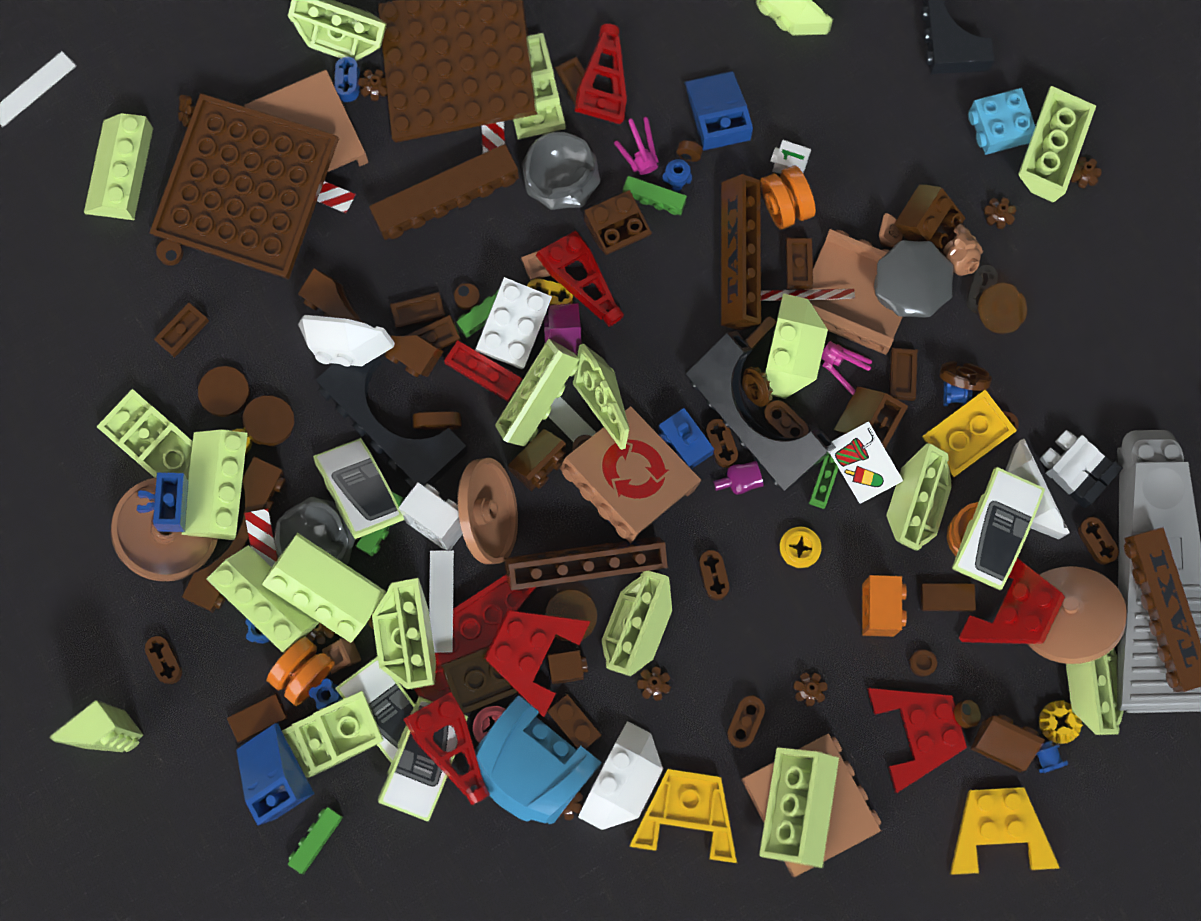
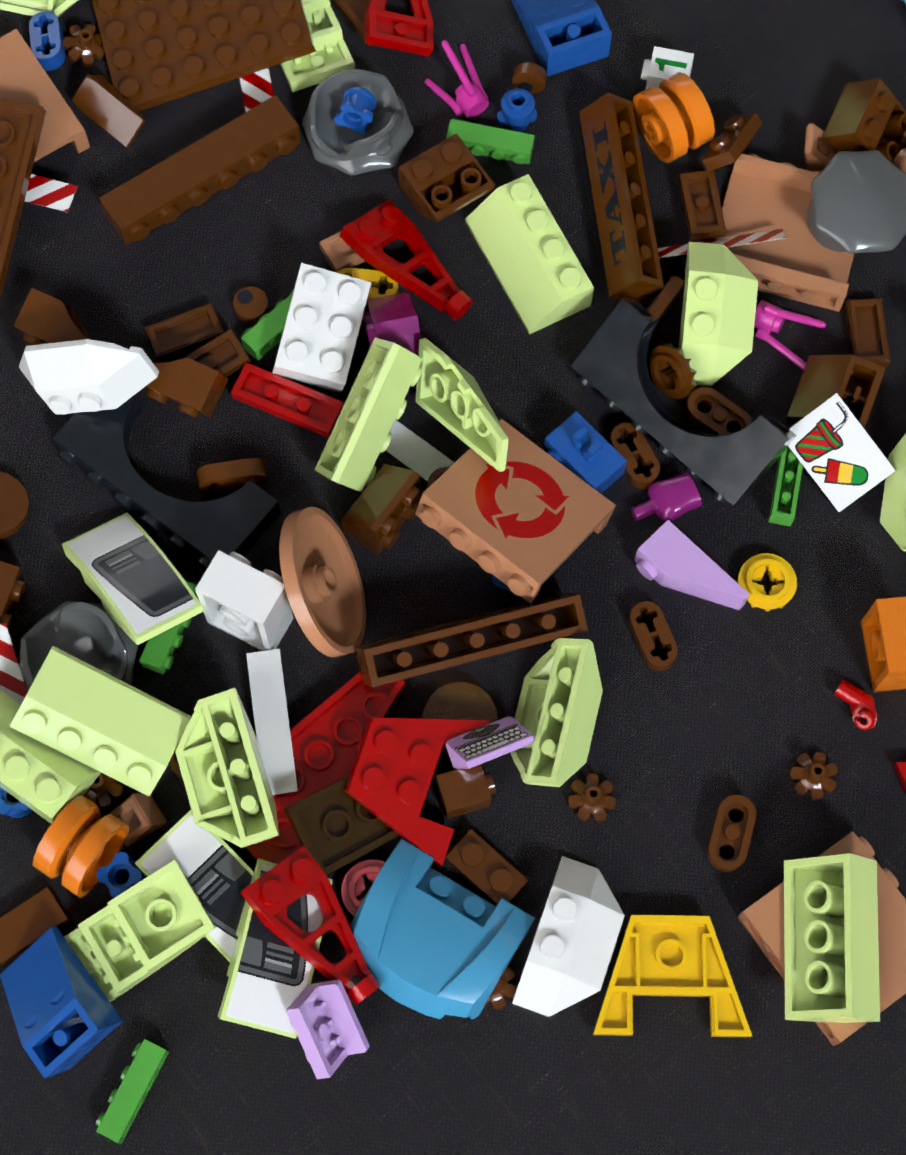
camera: 10 degrees left, 5 degrees down
(384, 137) = (108, 108): none -> reddish brown slope
(449, 816) = (326, 1026): none -> lavender bracket
(560, 162) = (356, 109): none -> blue brick
(586, 638) = (487, 743): none -> slope
(669, 286) = (530, 255): none -> yellowish green slope
(741, 528) = (684, 567): none -> lavender slope
(828, 219) = (732, 141): none -> reddish brown plate
(852, 644) = (861, 705): none -> red arm

